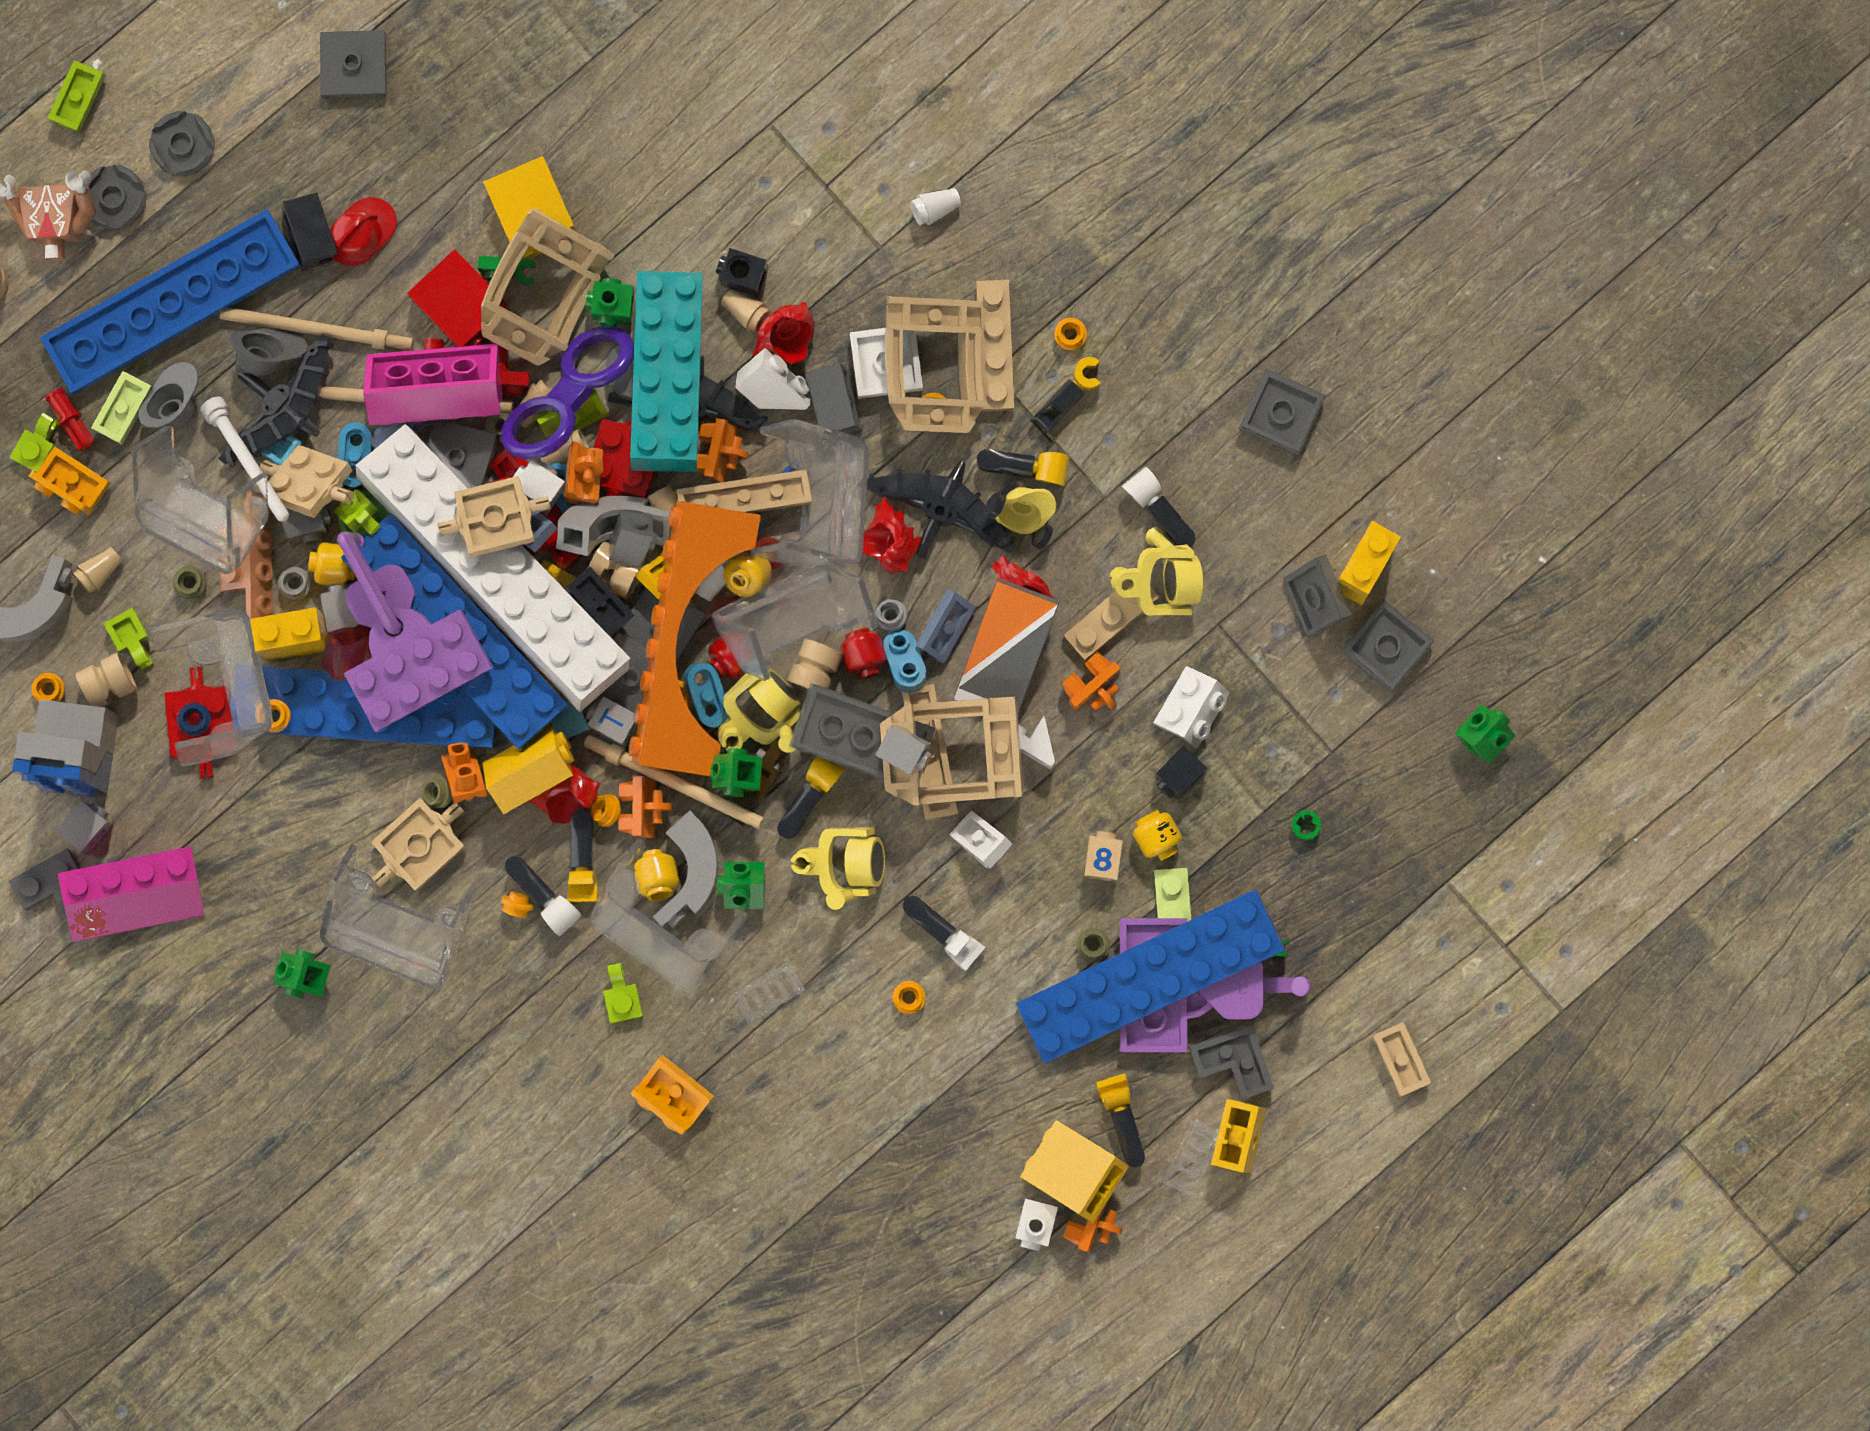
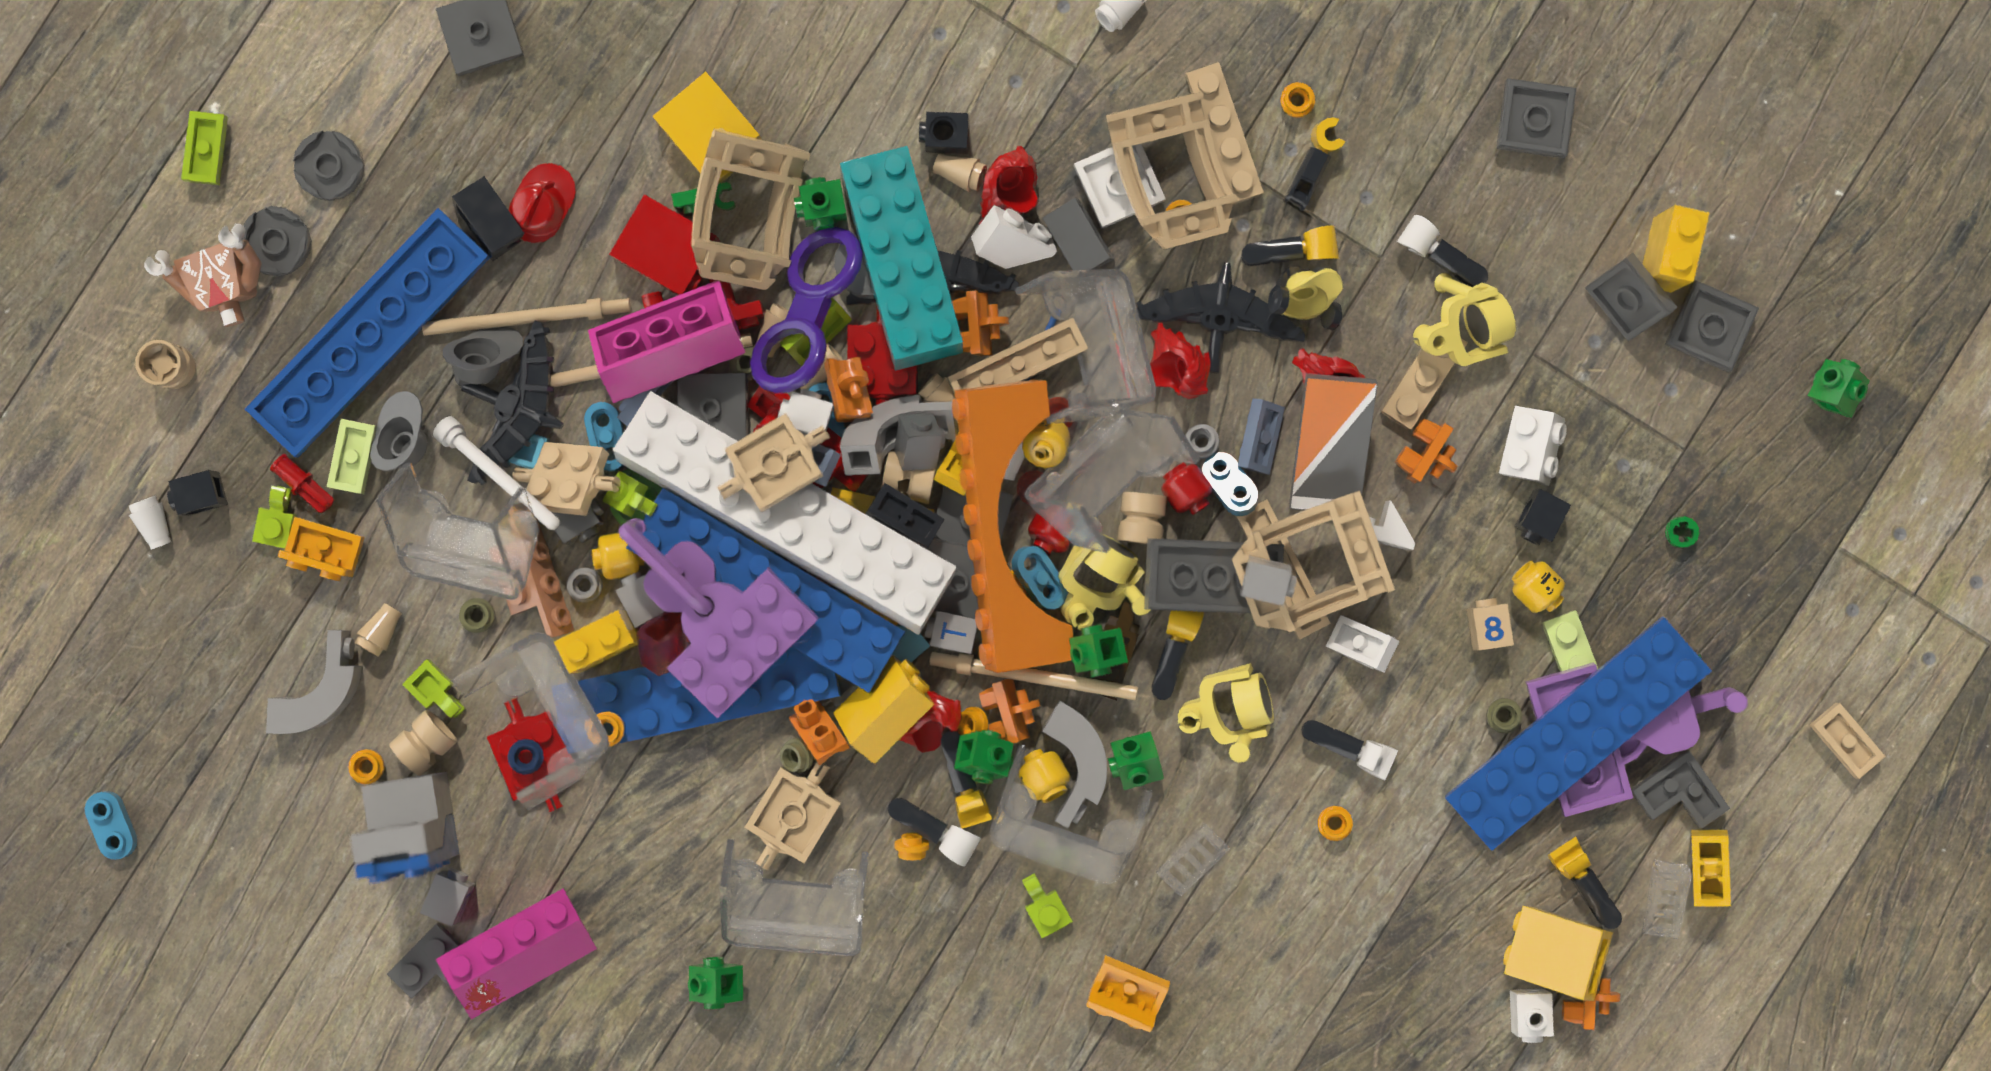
camera: 25 degrees left, 5 degrees up
(605, 838) = (984, 756): none -> green brick

